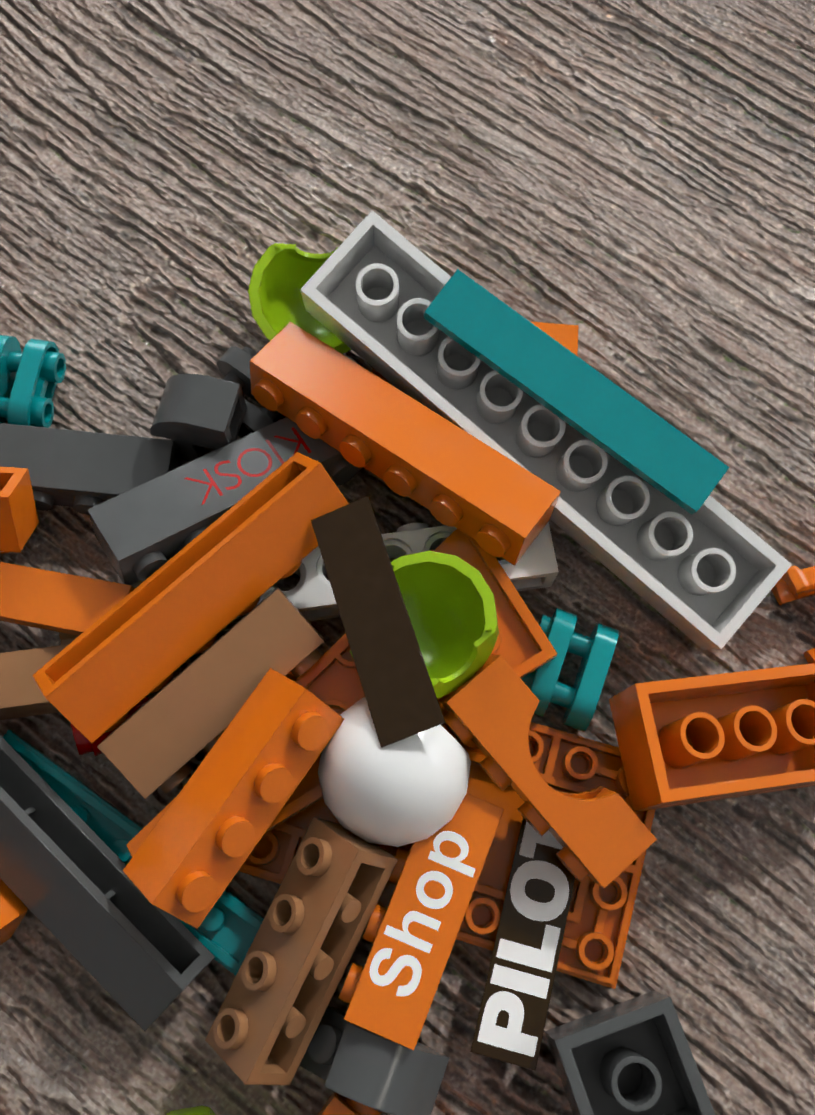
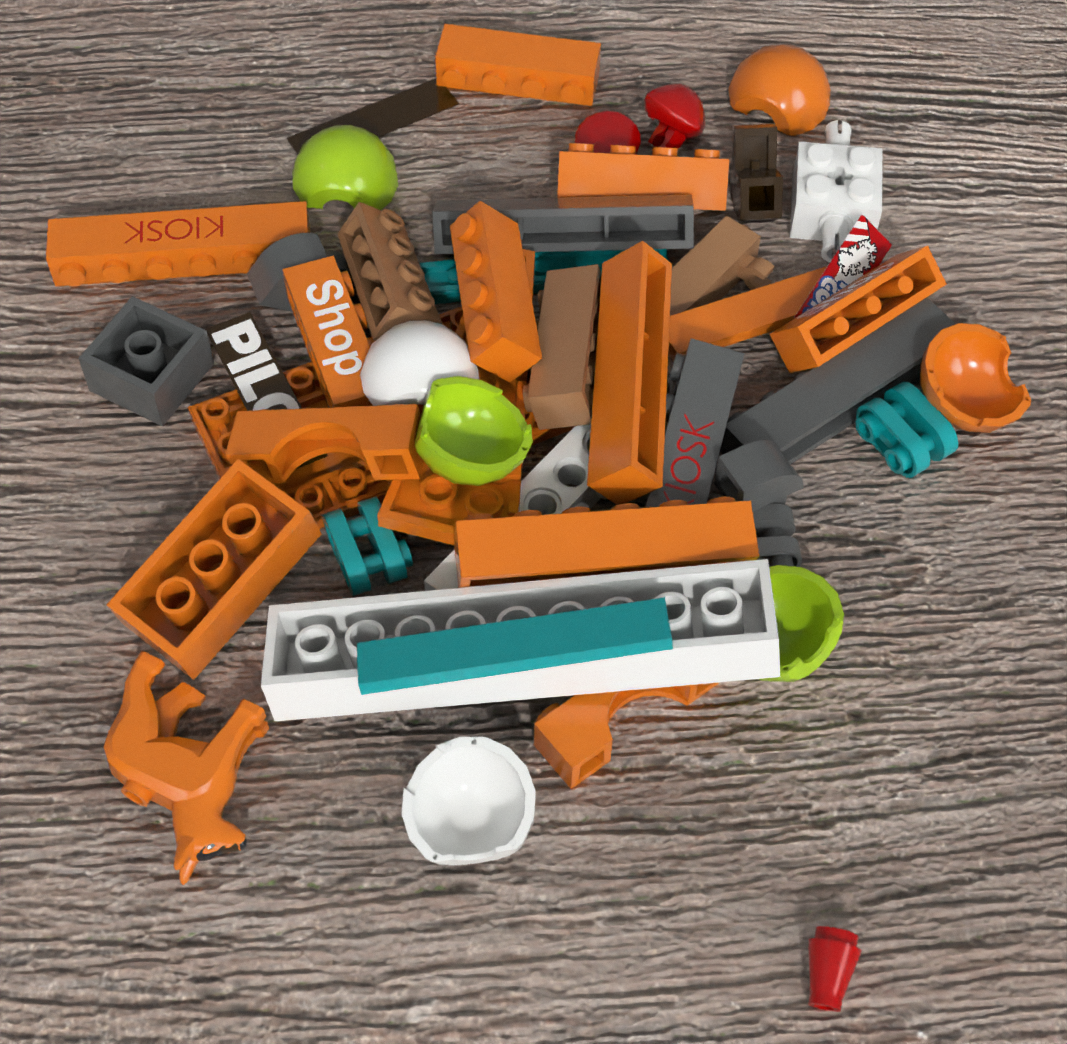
camera: 140 degrees right, 15 degrees down
(377, 623) = (505, 409): dark brown sticker -> none
(513, 97) = (831, 966): none -> red cone
(675, 365) = (469, 802): none -> white cylinder

